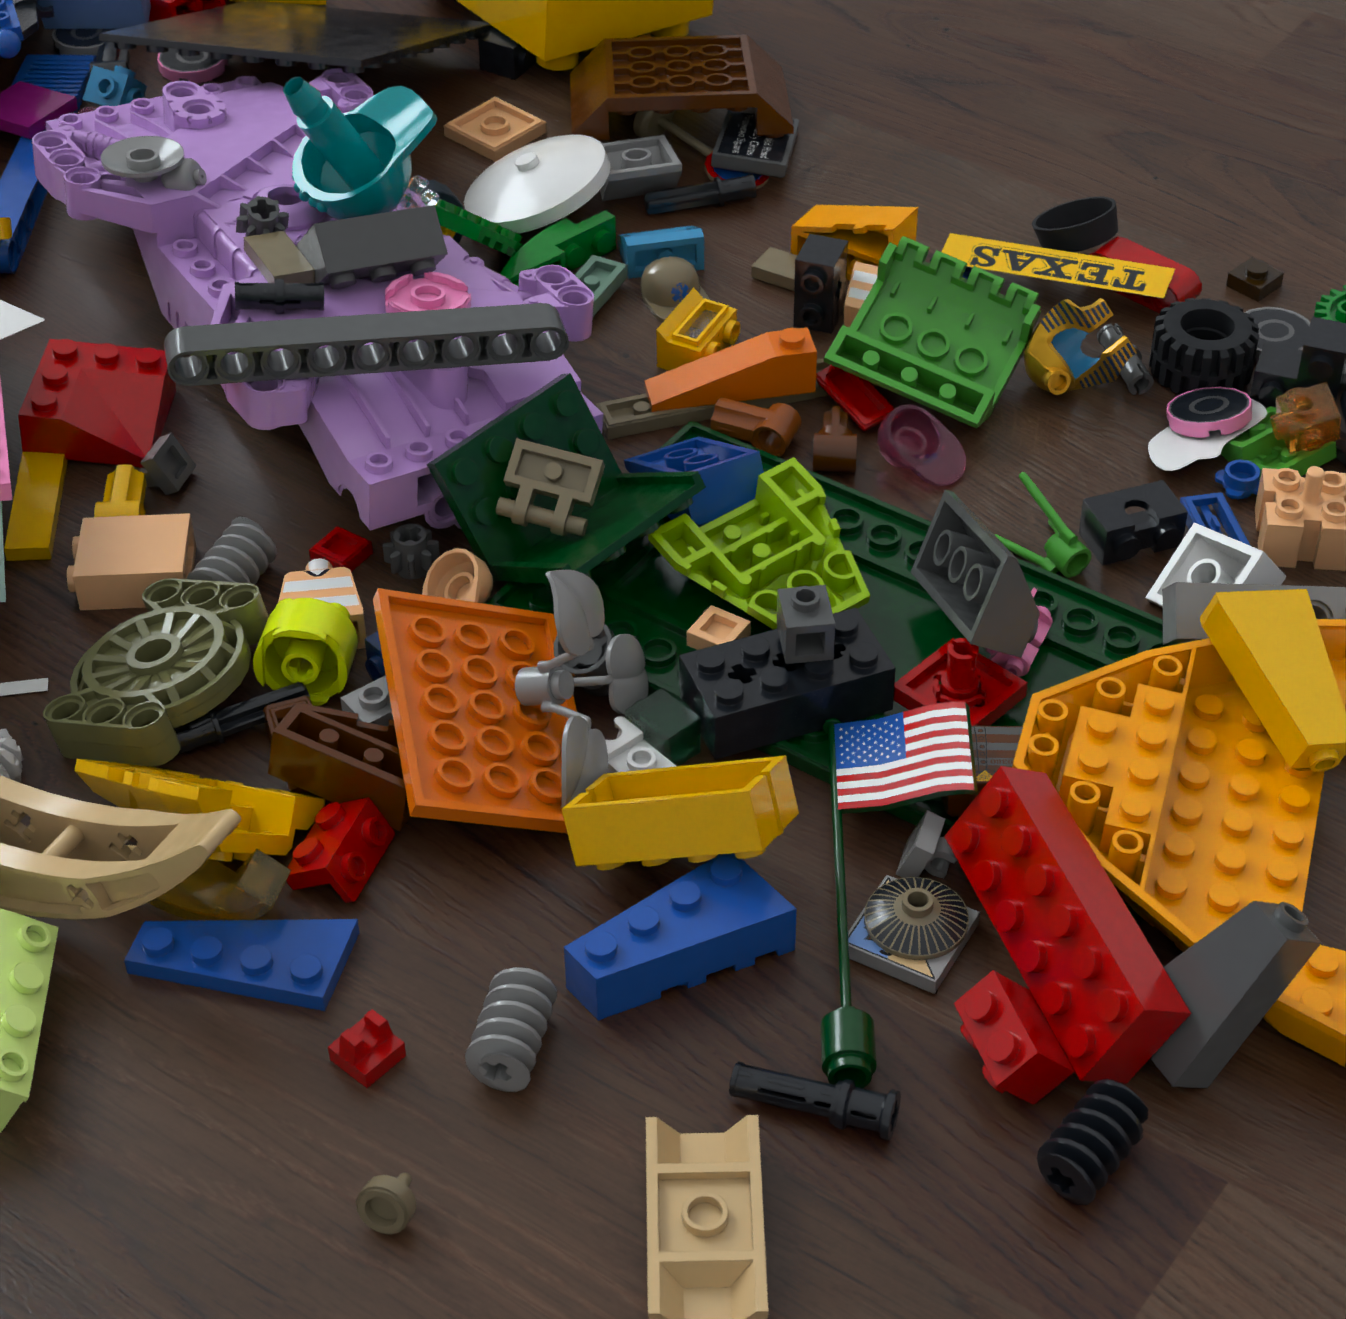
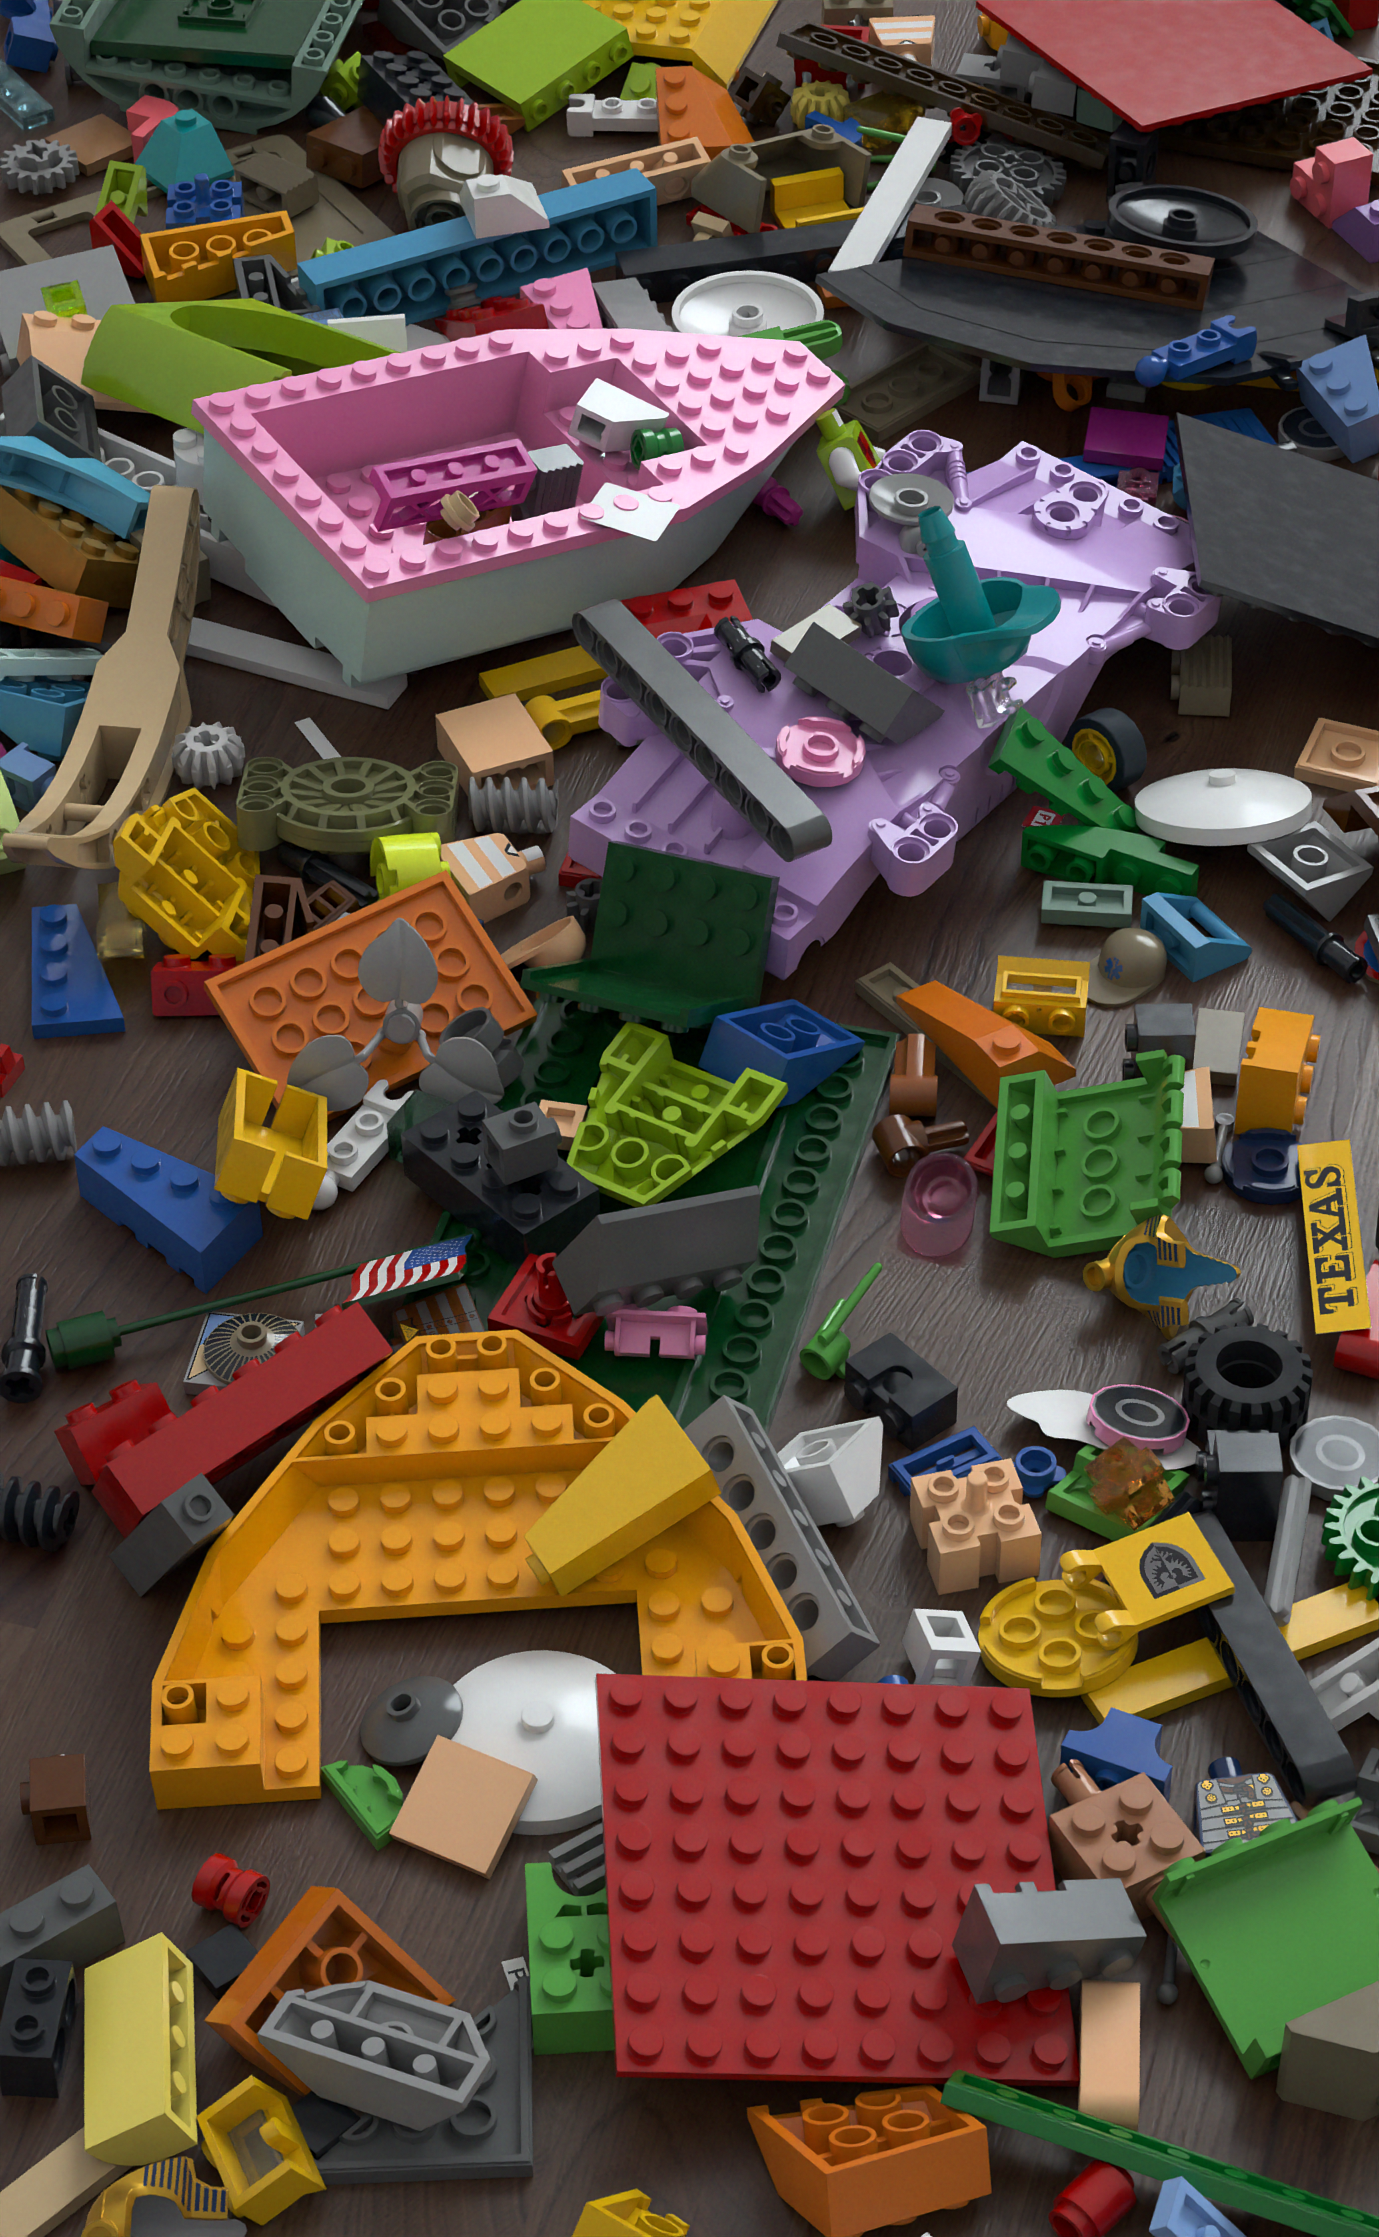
camera: 70 degrees right, 0 degrees up
(554, 474) = (646, 935): dark tan plate -> none

